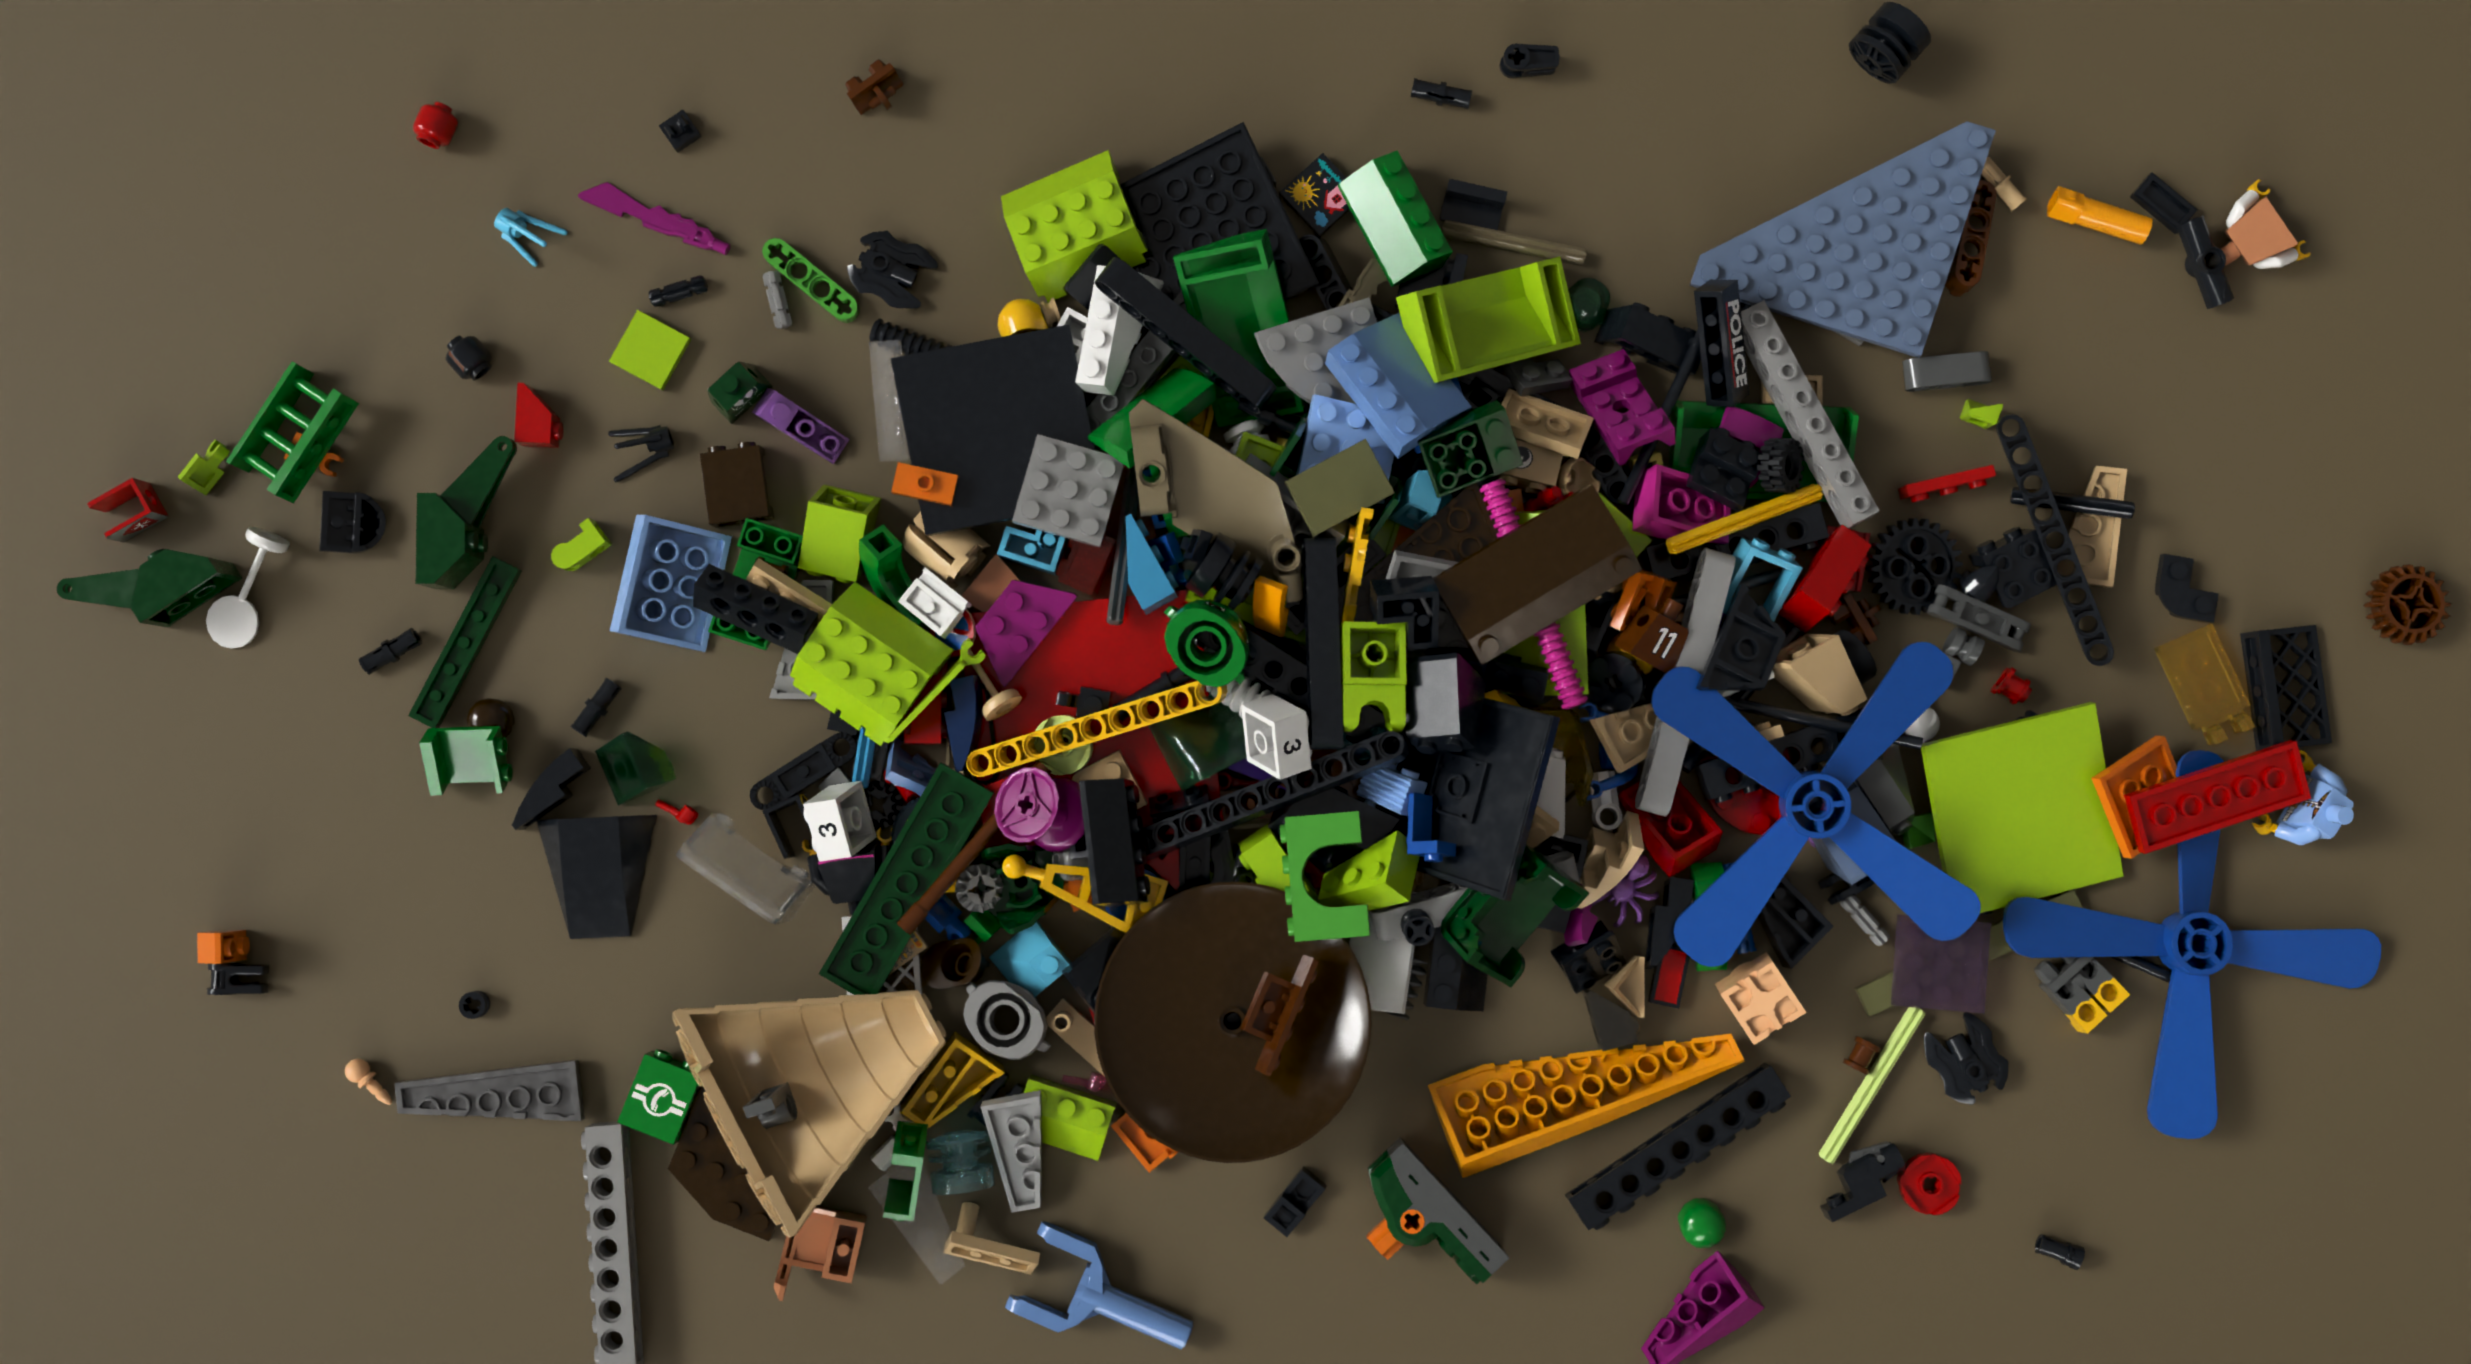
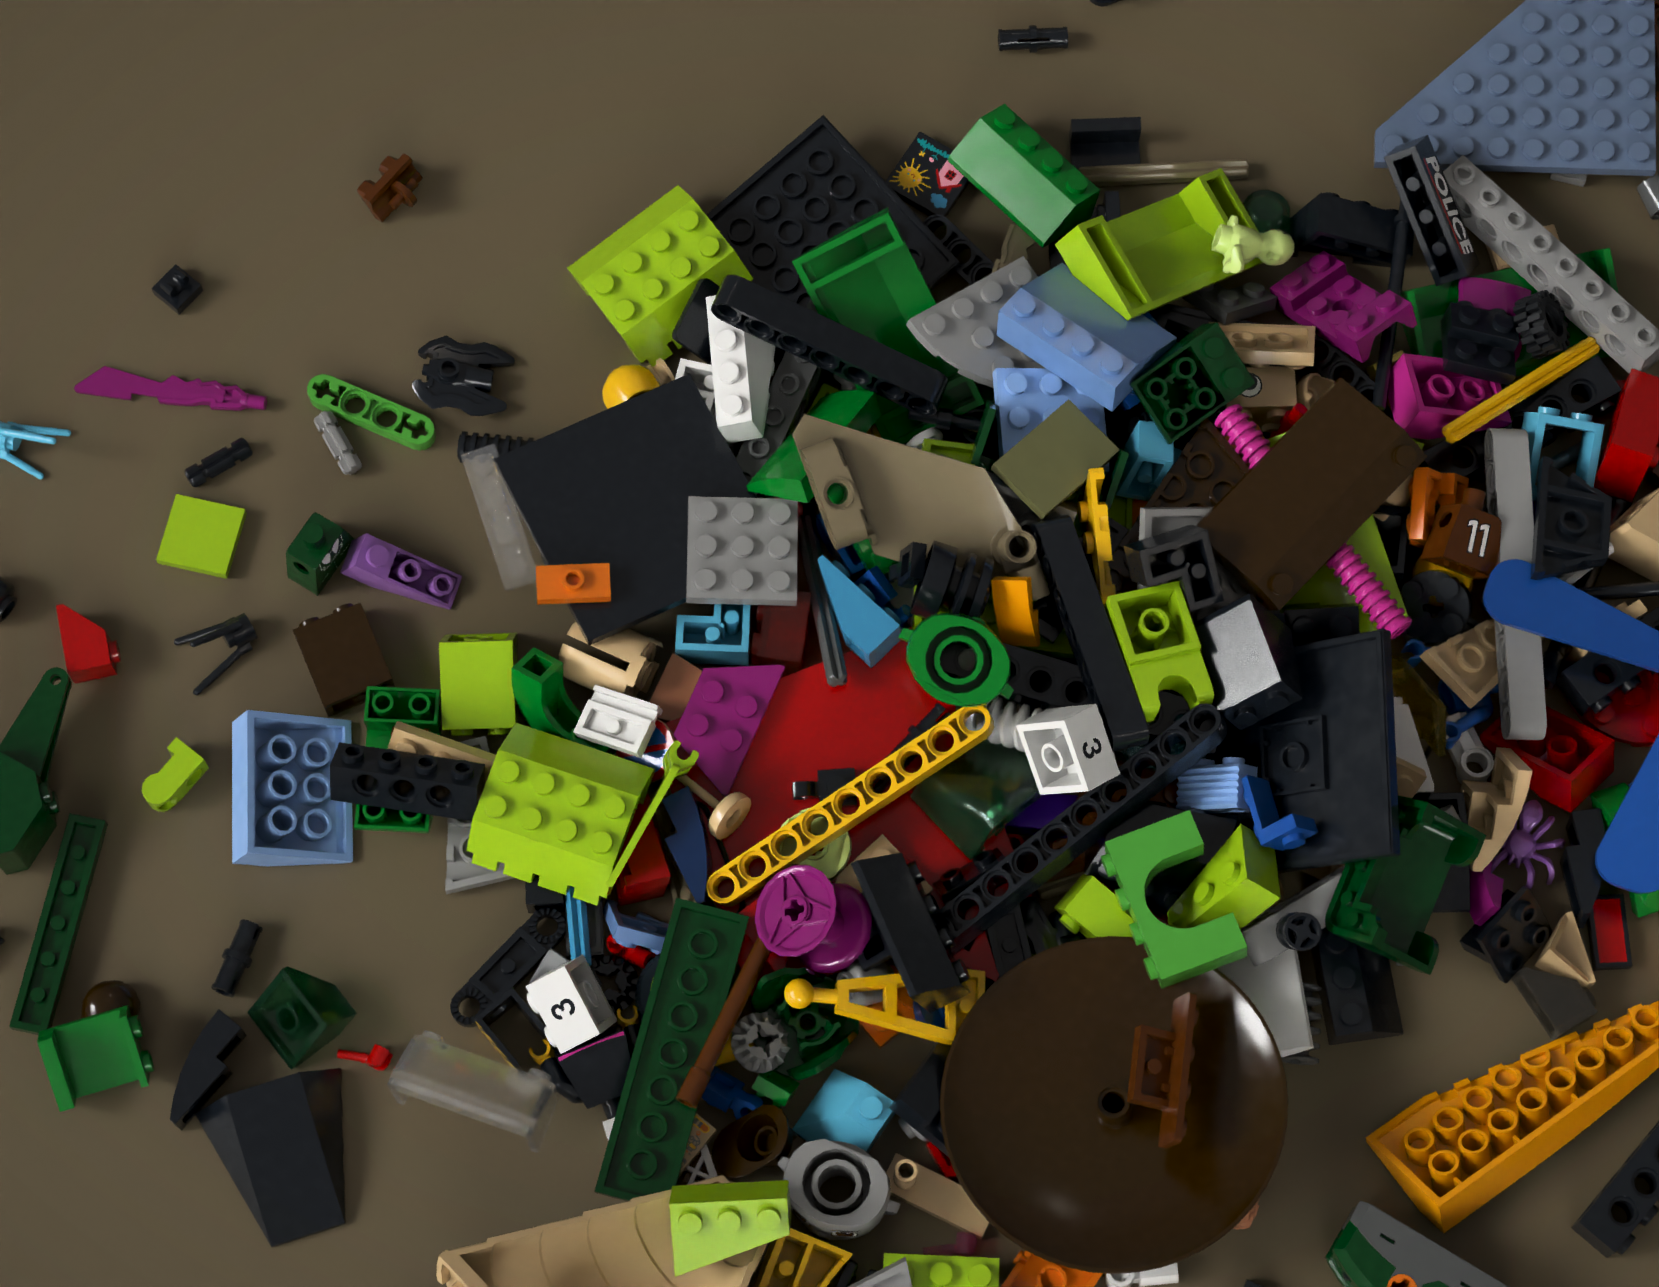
camera: 15 degrees left, 15 degrees down
(907, 1032) = (725, 1220): none -> lime wedge
(1555, 331) = (1243, 244): none -> yellowish green animal

